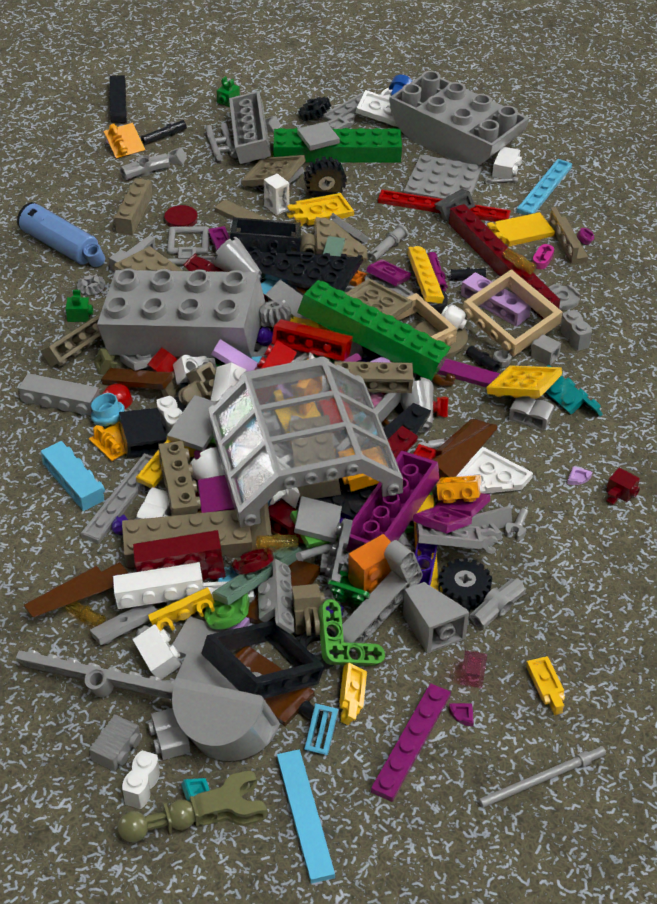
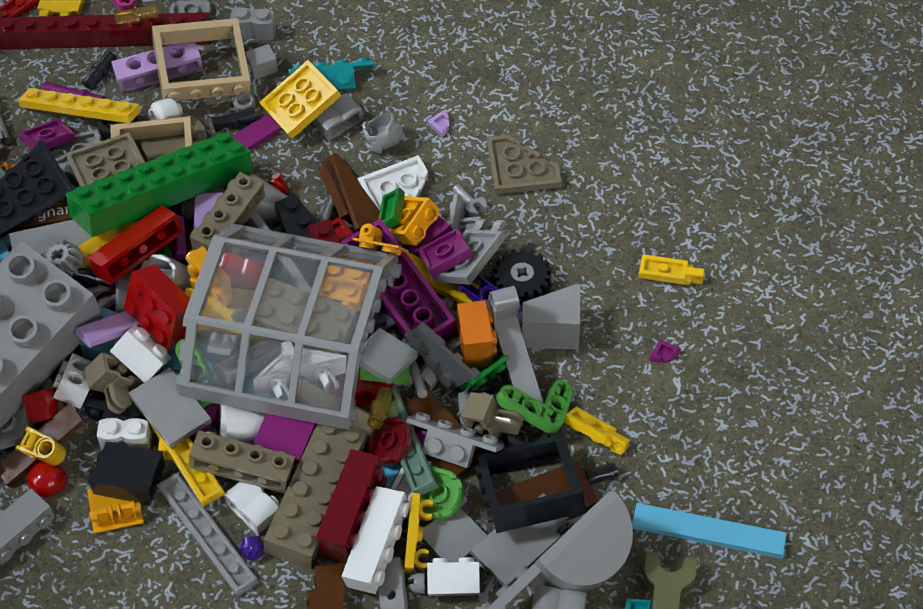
camera: 60 degrees left, 10 degrees up
(73, 475) = (145, 569): medium azure brick -> none
(106, 409) = (69, 495): medium azure piece -> none
(130, 375) = (38, 446): none -> yellow piece
(317, 749) = (613, 457): medium azure tile -> none
(406, 460) = (371, 237): none -> light orange hinge
(410, 742) = (674, 408): magenta plate -> none
(461, 472) = (392, 207): none -> green tile
(473, 669) = (624, 318): clear pink brick -> none
(497, 603) = (559, 259): light grey piece -> none
(534, 446) = (385, 132): none -> light grey hair
(573, 540) = (519, 167): none -> dark tan plate
(582, 759) = (762, 288): light grey bar -> none
(622, 486) = (479, 96): dark red brick -> none

